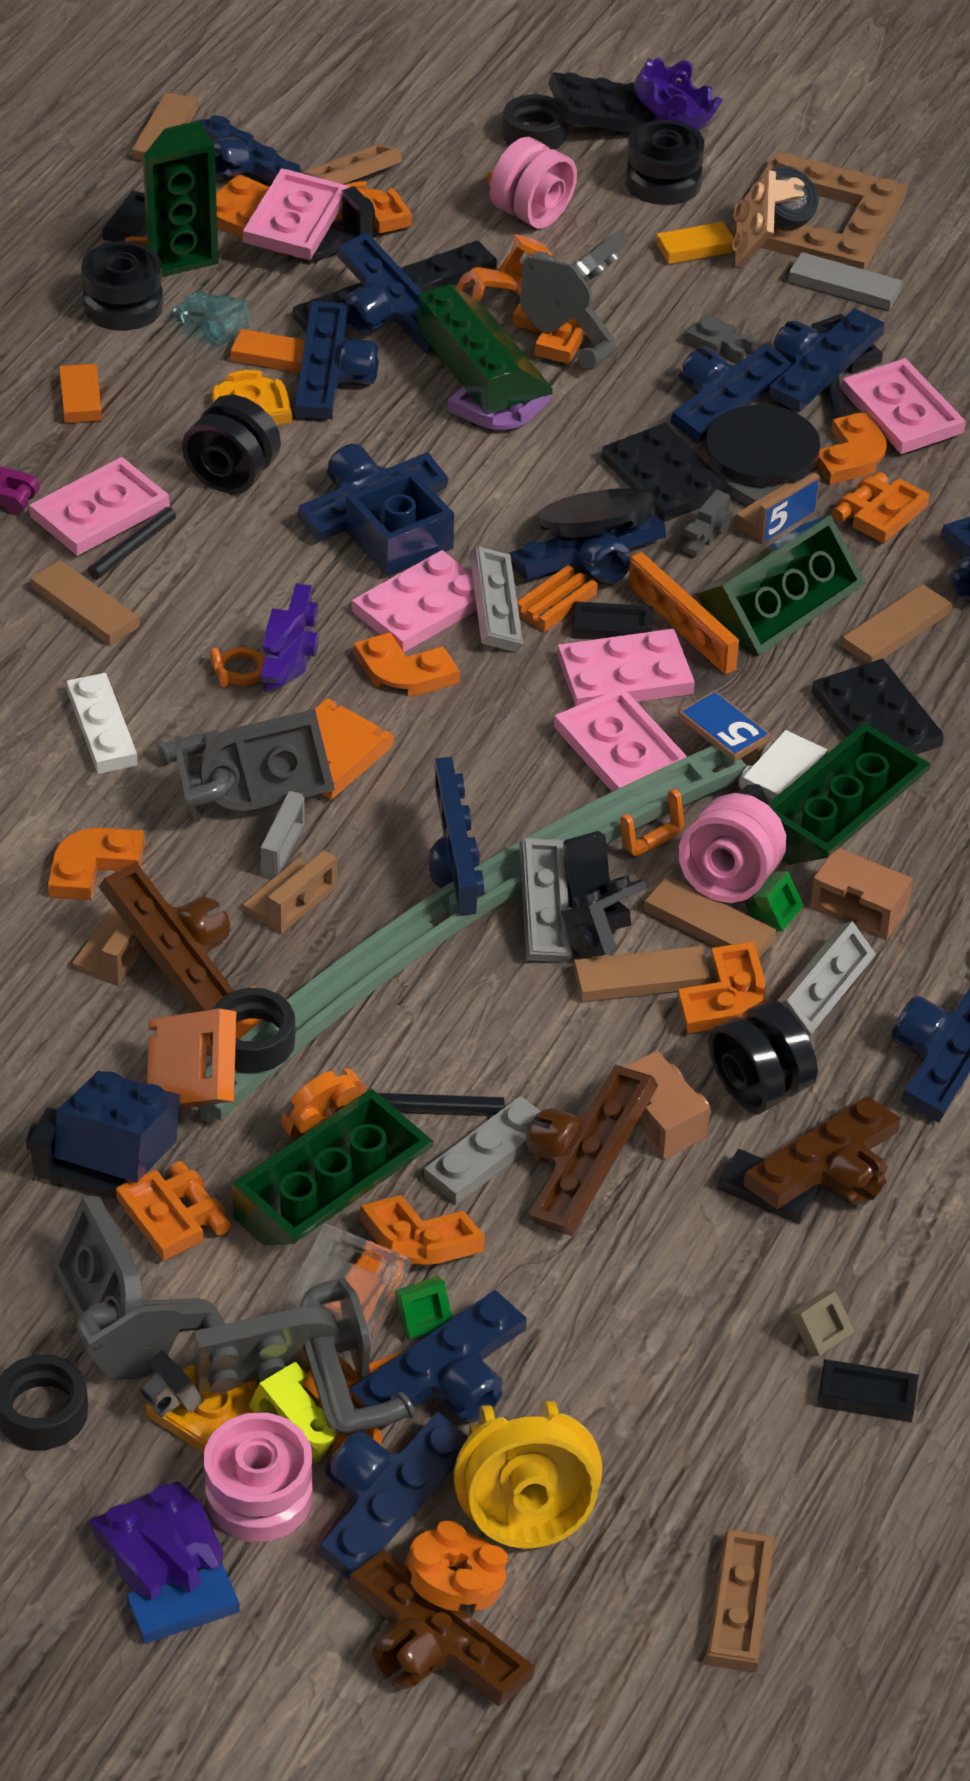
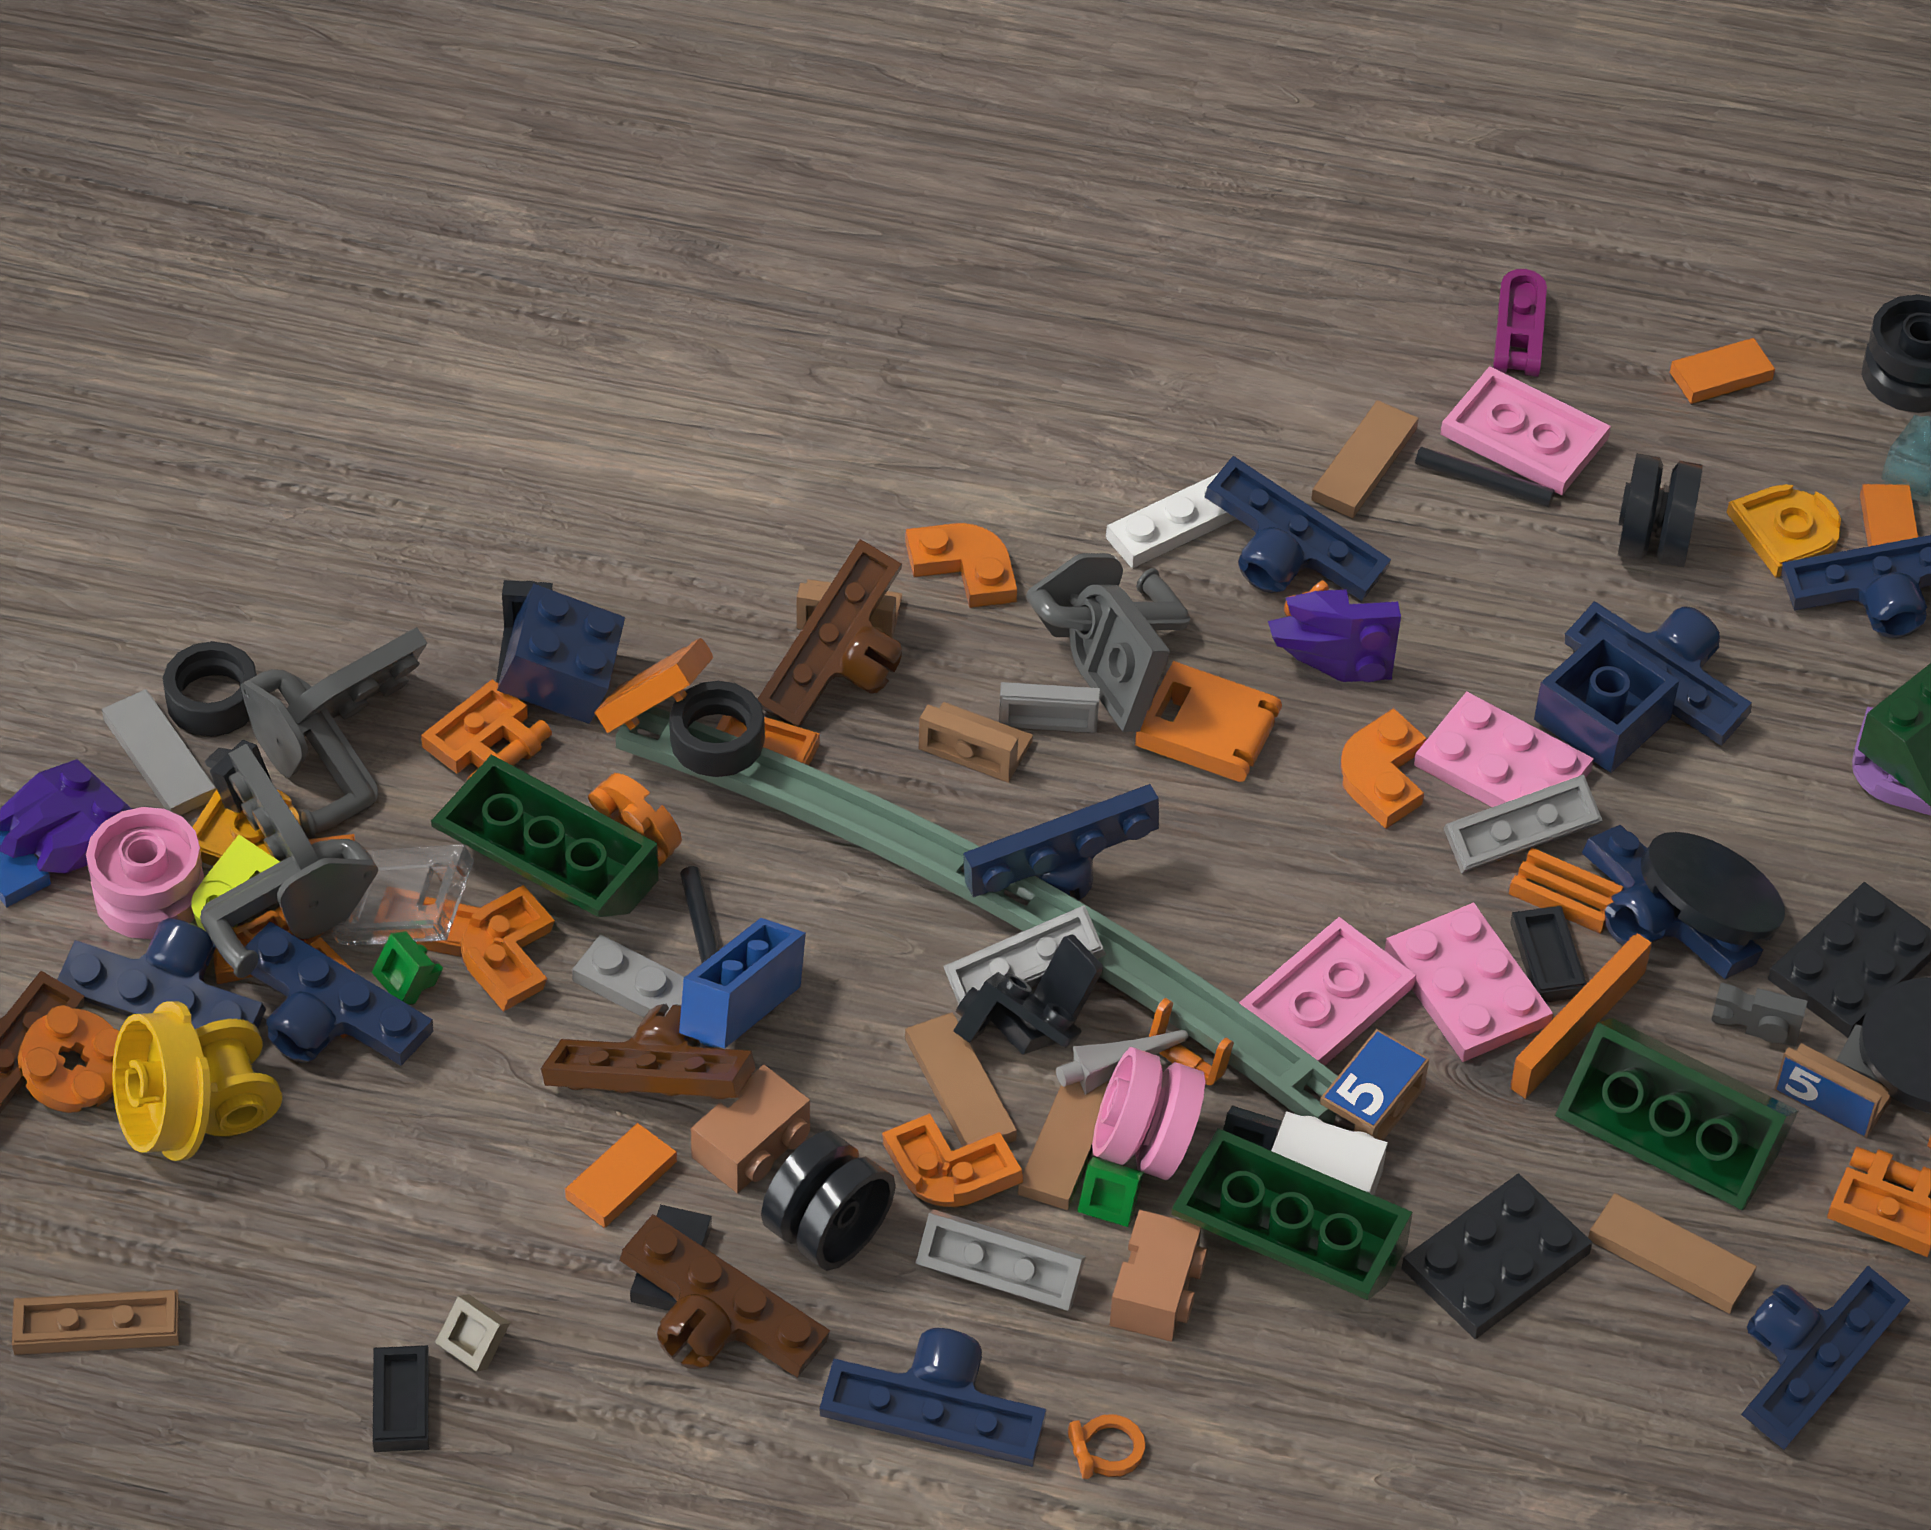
camera: 75 degrees right, 5 degrees up
(98, 1460) = (159, 753): none -> light grey tile
(163, 651) = (1291, 535): none -> dark blue plate
(533, 1064) = (742, 983): none -> blue brick
(660, 874) = (1097, 1062): none -> light grey piece
(676, 1203) = (621, 1175): none -> orange tile

